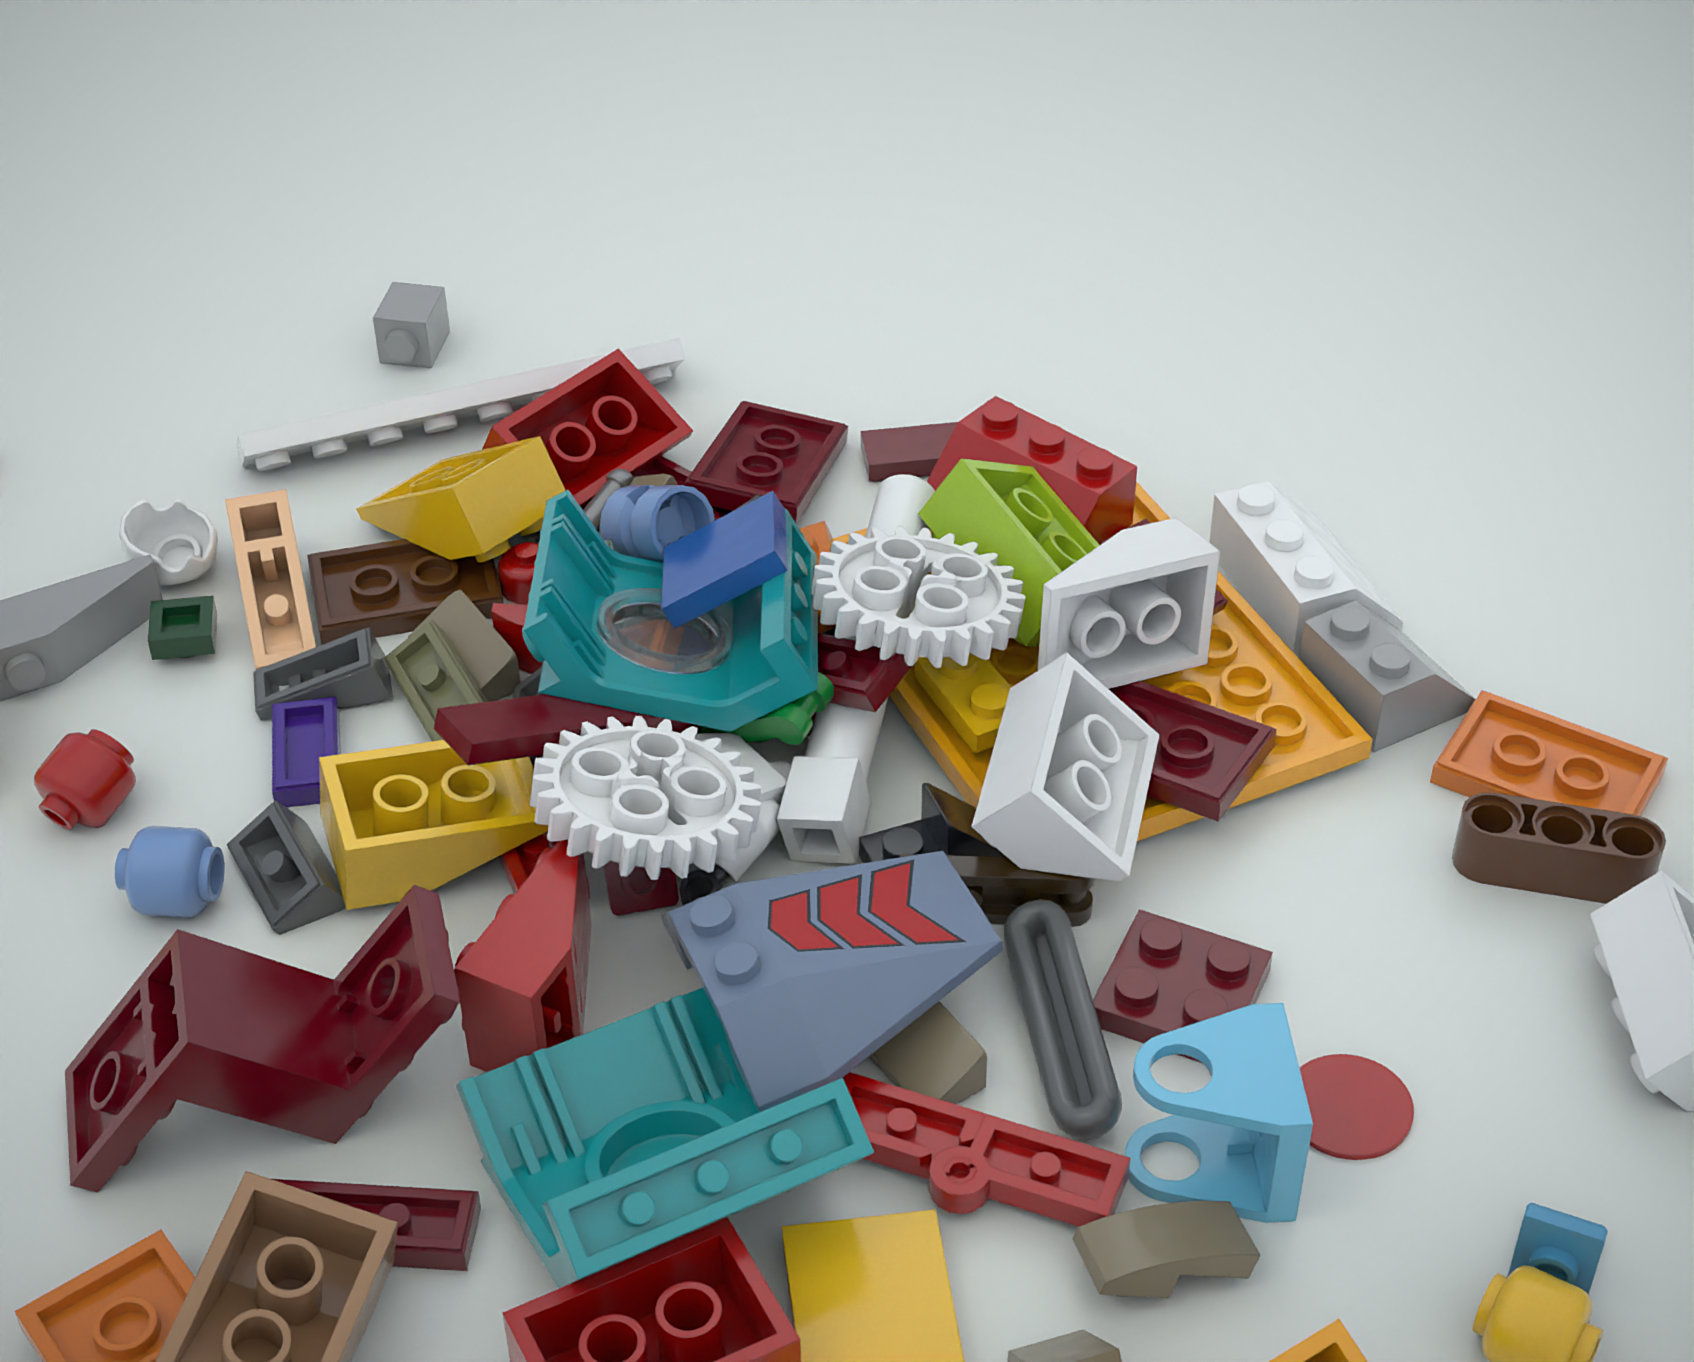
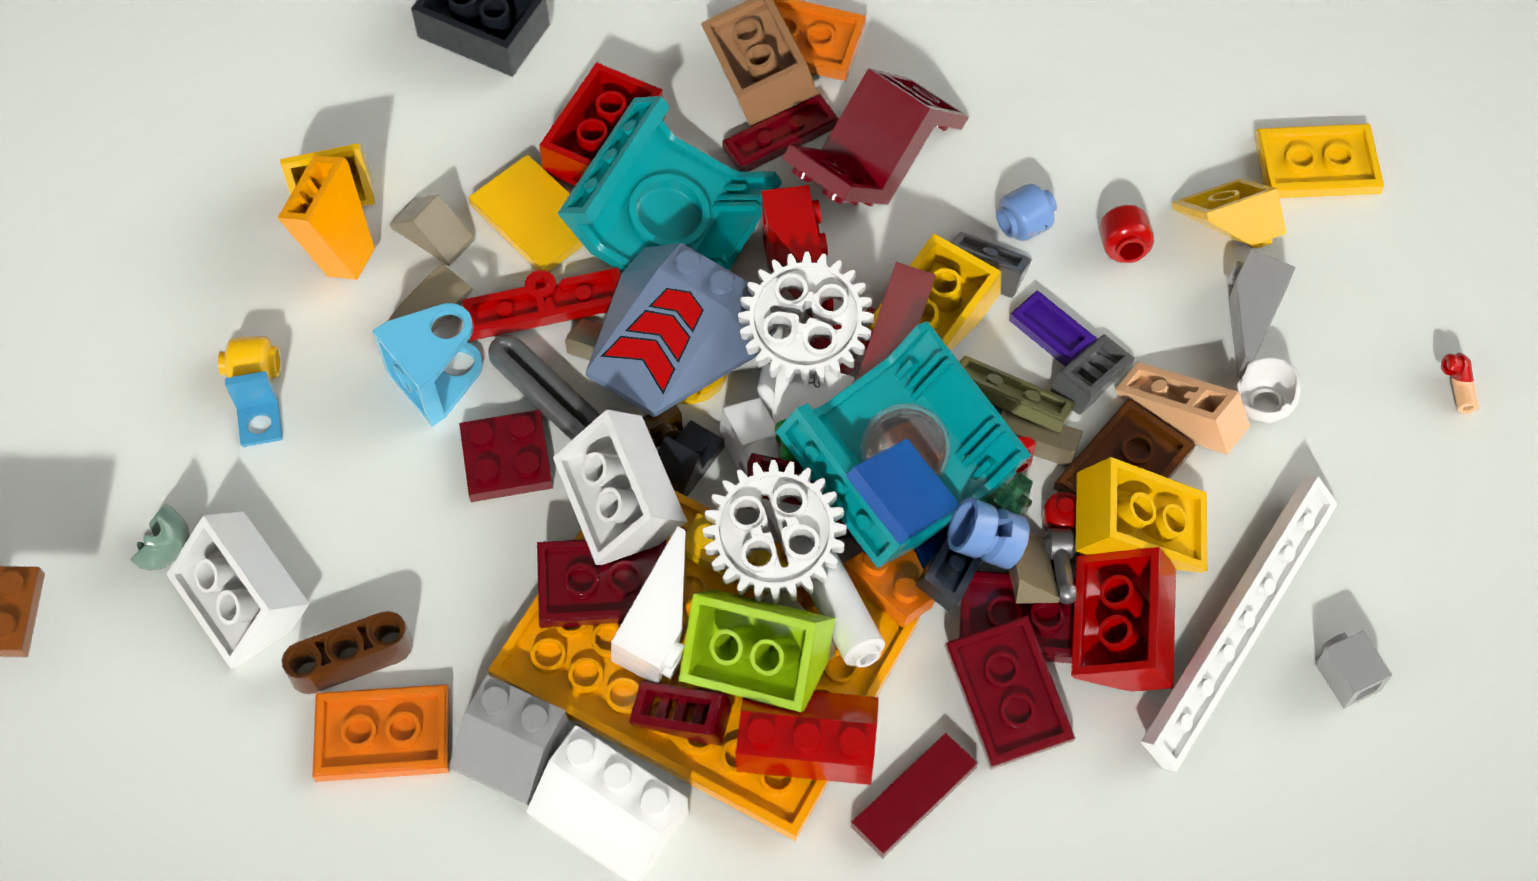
camera: 145 degrees right, 20 degrees up
(182, 627) = (1197, 352): dark green plate -> none
(1356, 1106) = (391, 444): red piece -> none

